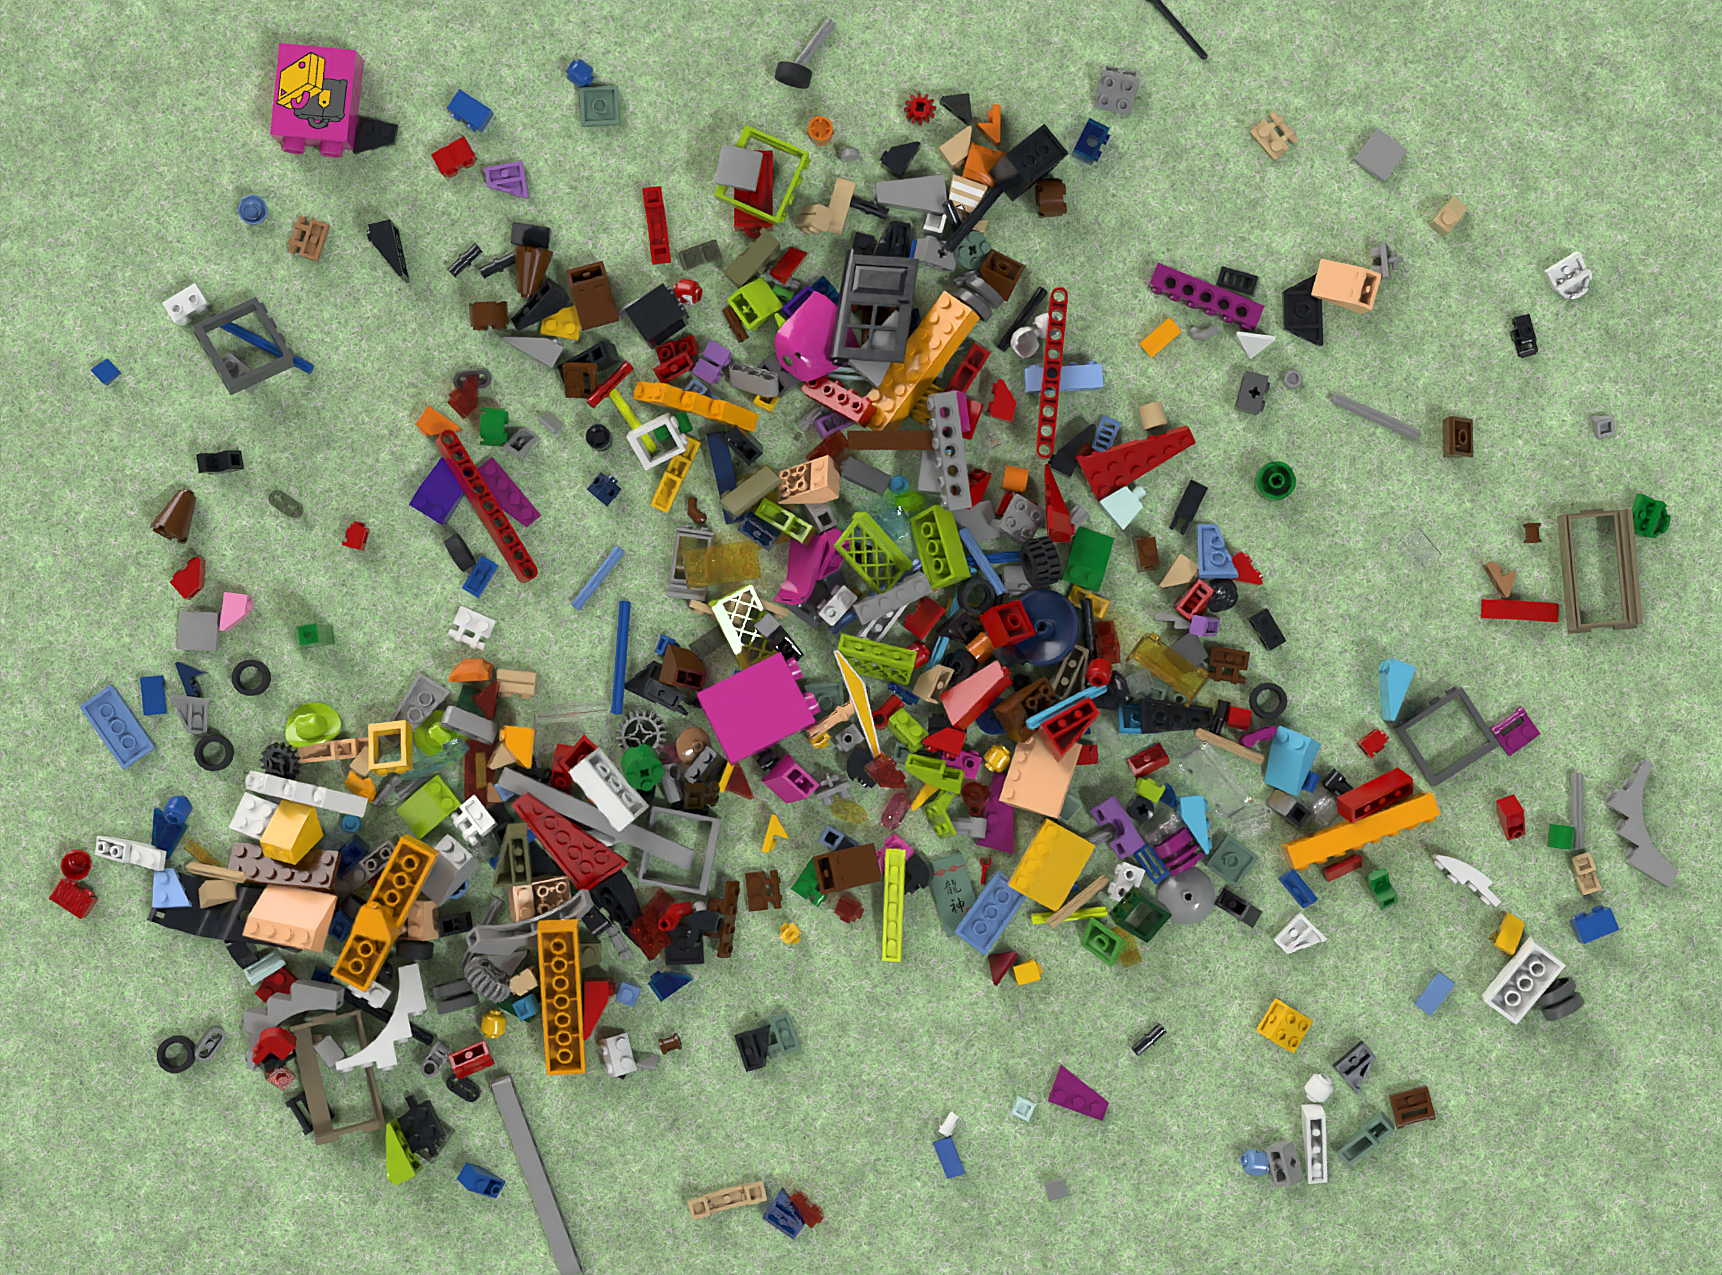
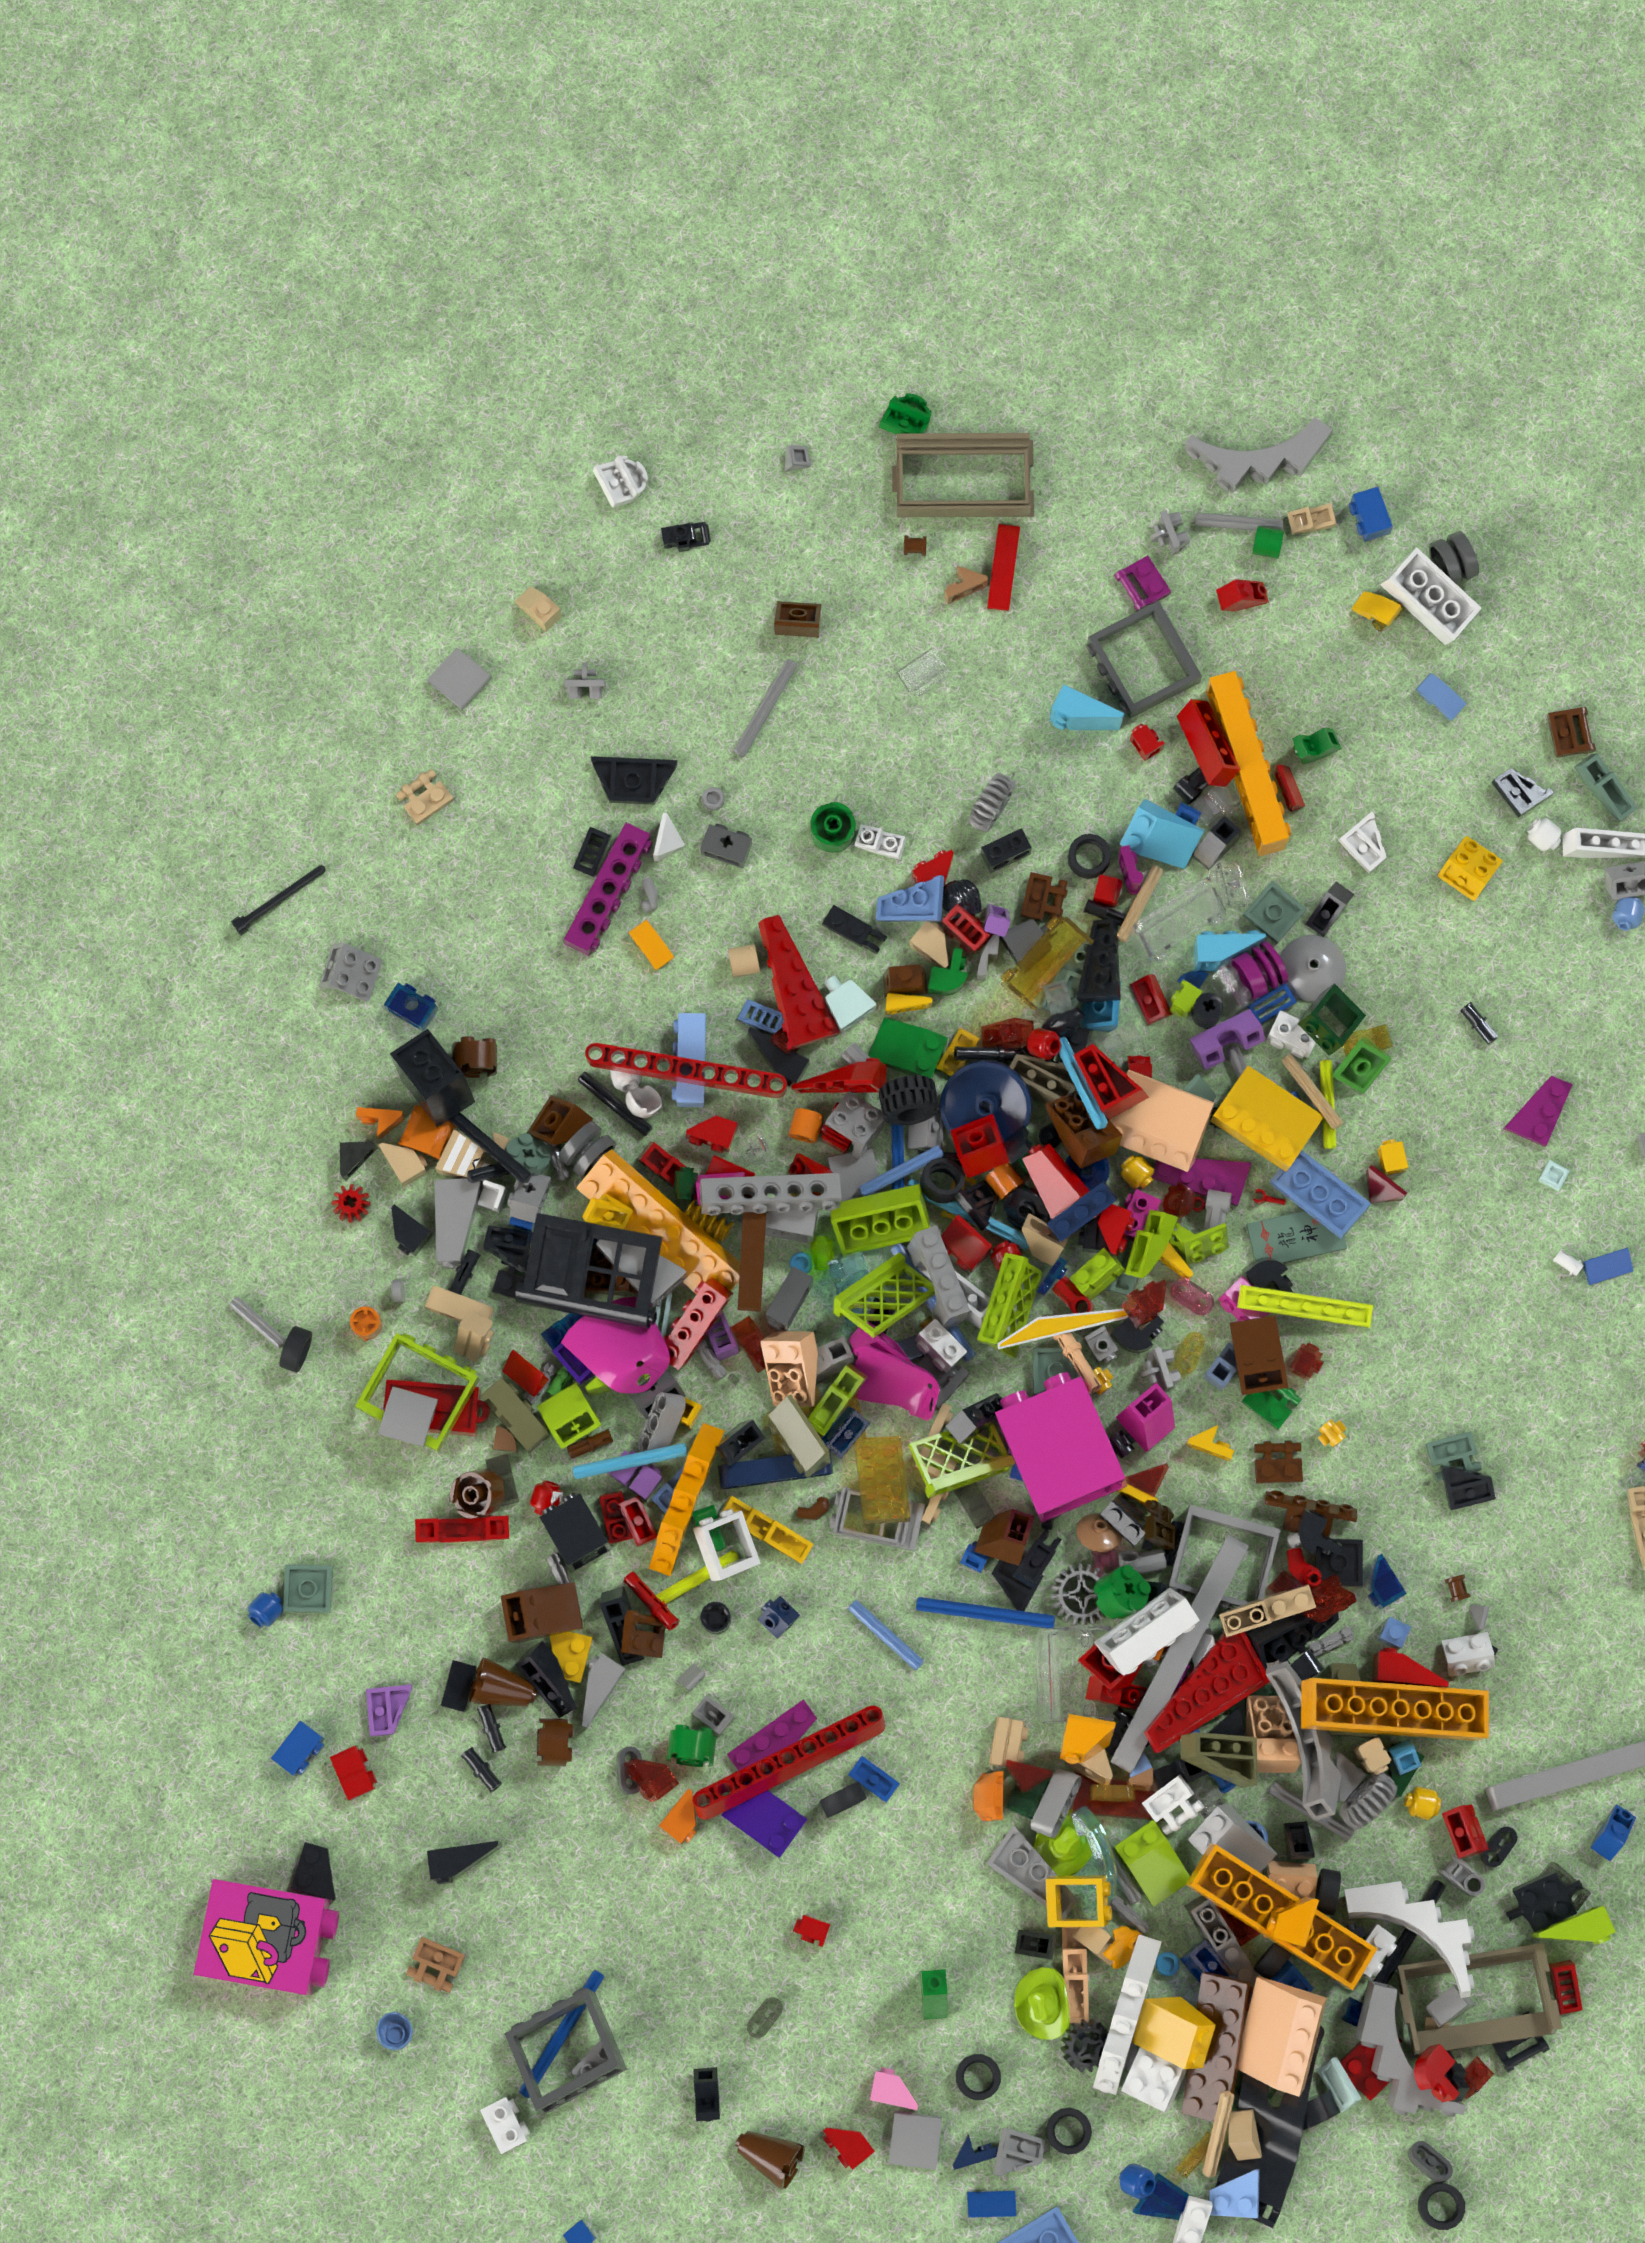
camera: 85 degrees left, 10 degrees down
(357, 717) = (1035, 1944): none -> pearl dark grey slope
(368, 1144) = (1557, 1988): none -> red slope
(455, 994) = (1386, 1844): dark grey wheel -> none
(474, 622) = (930, 1789): white plate -> none
(636, 887) = (1267, 1610): none -> tan slope
(685, 234) = (477, 1493): none -> reddish brown brick
(720, 356) = (629, 1461): none -> medium azure axle
(732, 252) = (504, 1440): none -> medium nougat tile
(923, 317) = (607, 1212): none -> yellow slope
(954, 713) = (1082, 1211): none -> dark blue arch
(956, 381) = (685, 1183): none -> dark green brick
(1126, 549) = (904, 1003): none -> yellow slope
(1149, 589) = (949, 981): none -> green brick
(1266, 523) = (880, 842): none -> white slope
(1298, 888) = (1311, 839): blue plate -> none
(1307, 614) = (992, 802): none -> light grey gear
(1346, 285) = (610, 727): light nougat slope -> none
(1461, 872) = (1303, 655): white slope -> none
(1571, 750) = (1168, 523): none -> light grey hips

